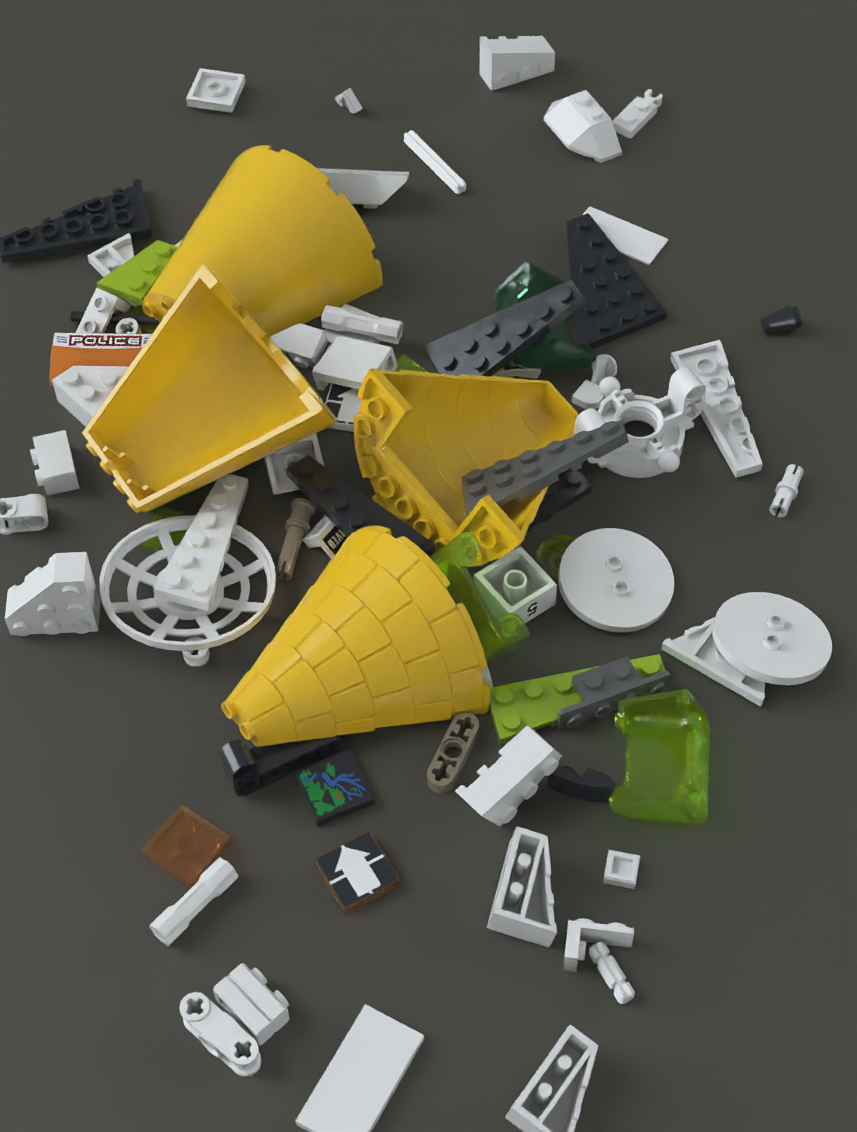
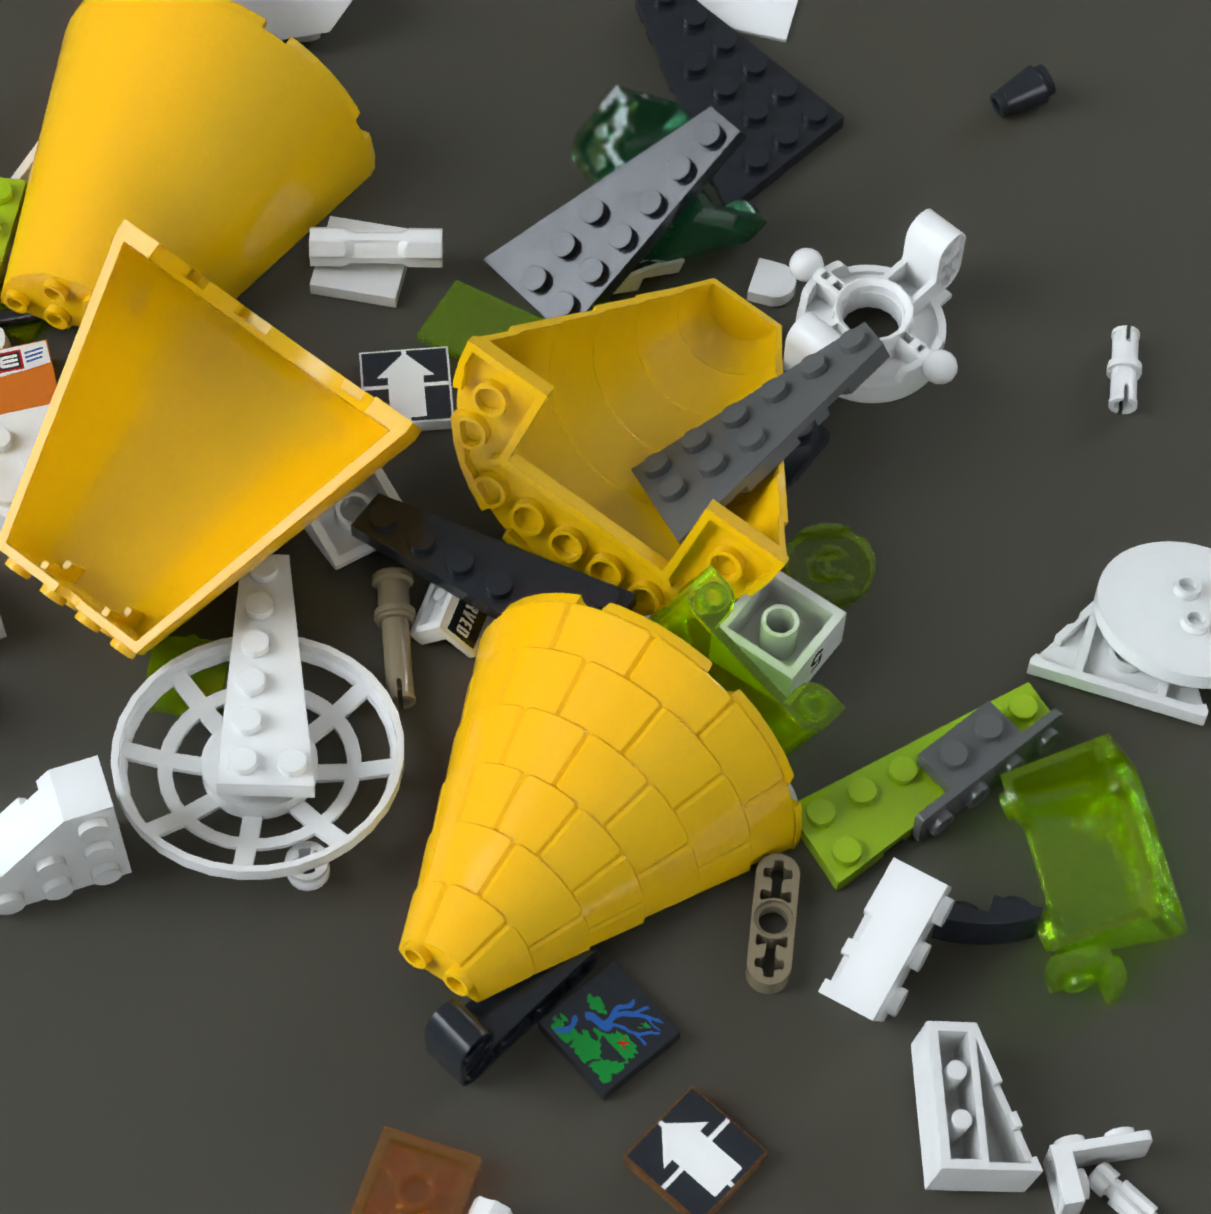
camera: 20 degrees left, 5 degrees up
(302, 344) = (291, 303): white slope -> none
(349, 361) = (391, 321): white panel -> none
(603, 367) = (780, 234): white plate -> none
(615, 580) = (922, 579): white plate -> none
(621, 869) = (1089, 1039): white tile -> none
(632, 824) = (1081, 967): none -> clear neon green bracket
(722, 406) = (988, 263): white wing -> none

